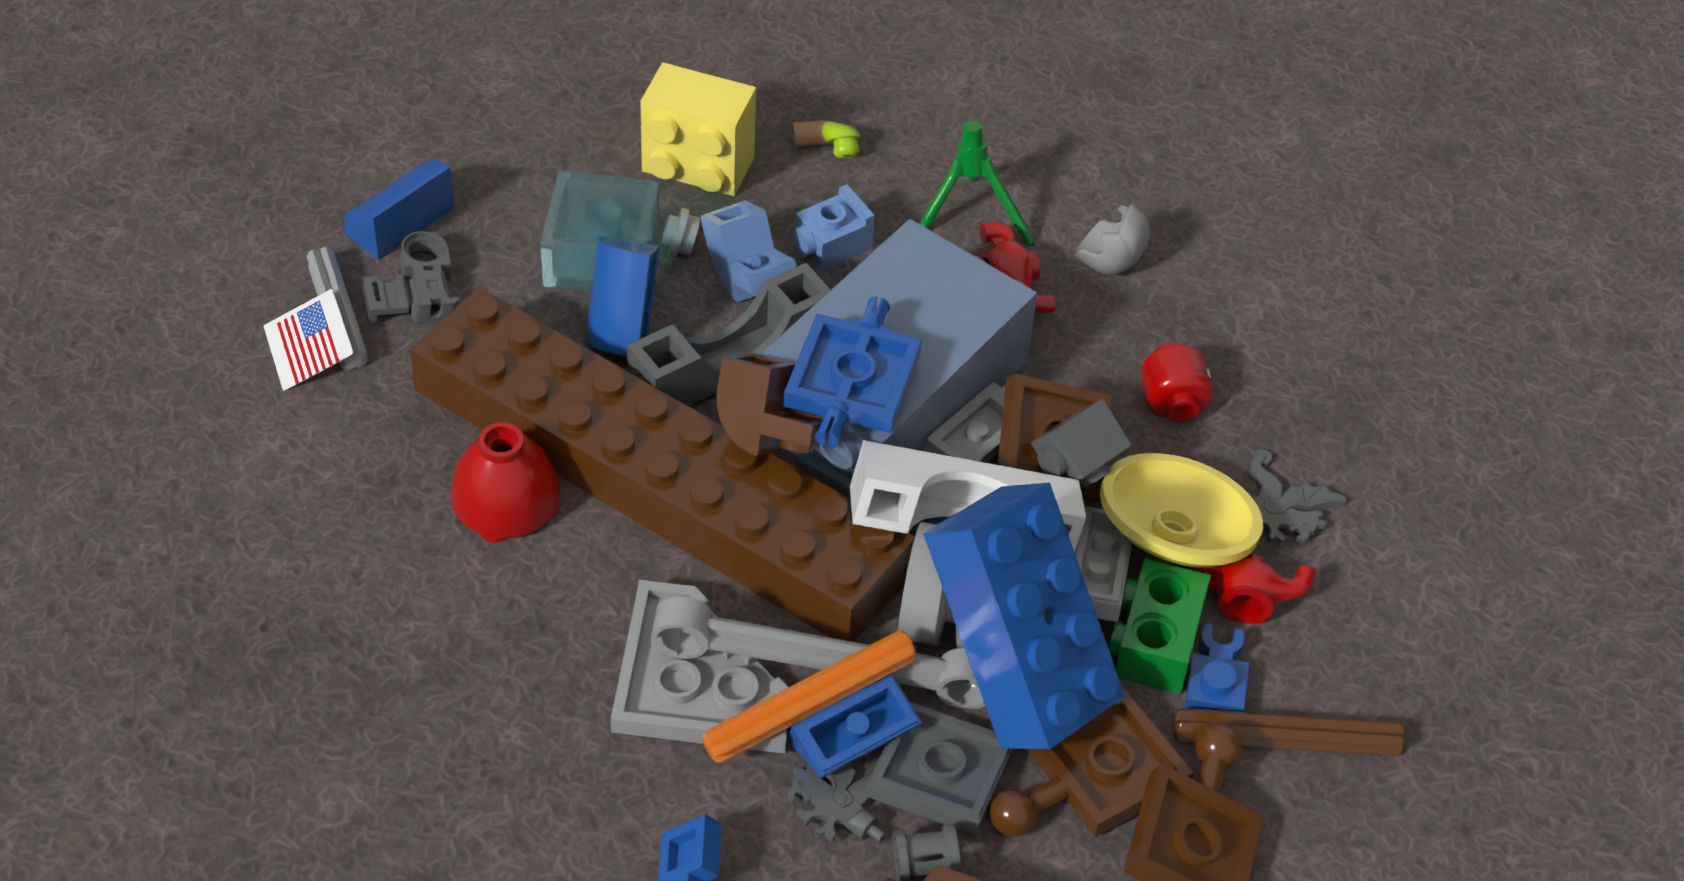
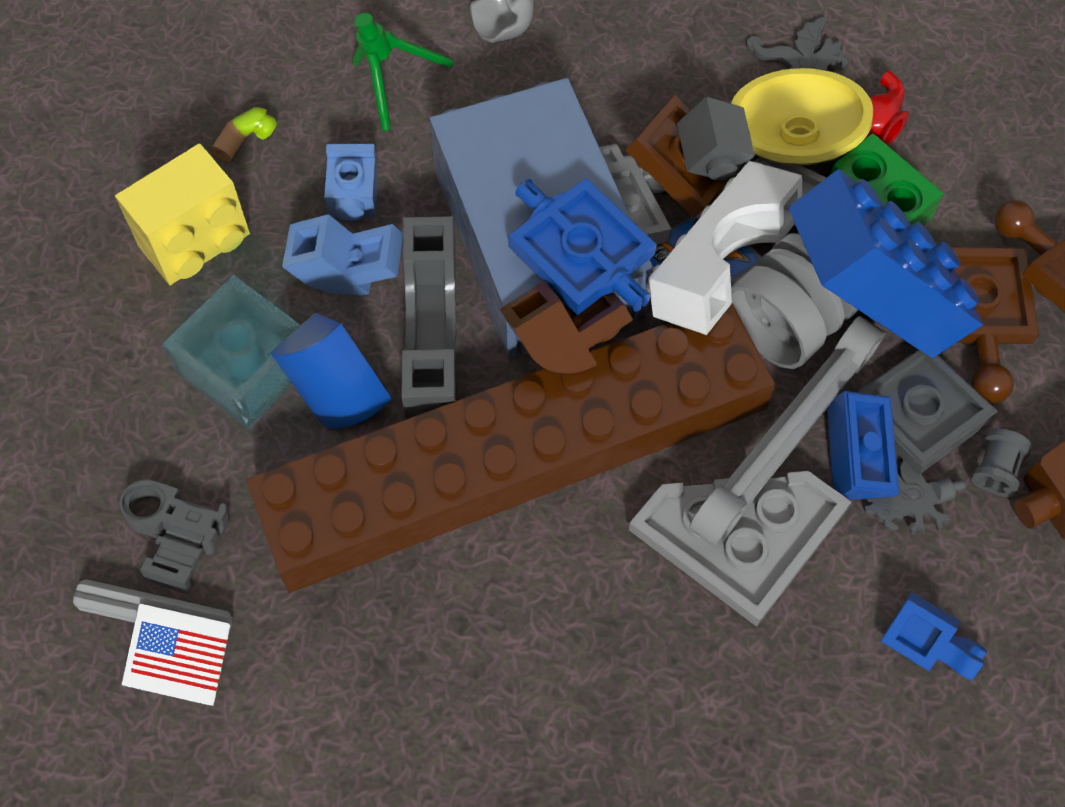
camera: 55 degrees left, 15 degrees up
(401, 208) = (78, 495): blue brick -> none
(504, 484) = (463, 594): red piece -> none
(680, 233) = (275, 288): light grey plate -> none
(808, 696) = (836, 462): orange axle -> none
(1013, 259) = (471, 84): red piece -> none
(1176, 380) = (662, 50): red head -> none
(1215, 676) = (956, 187): blue plate -> none
(1296, 731) = (1007, 173): reddish brown axle -> none

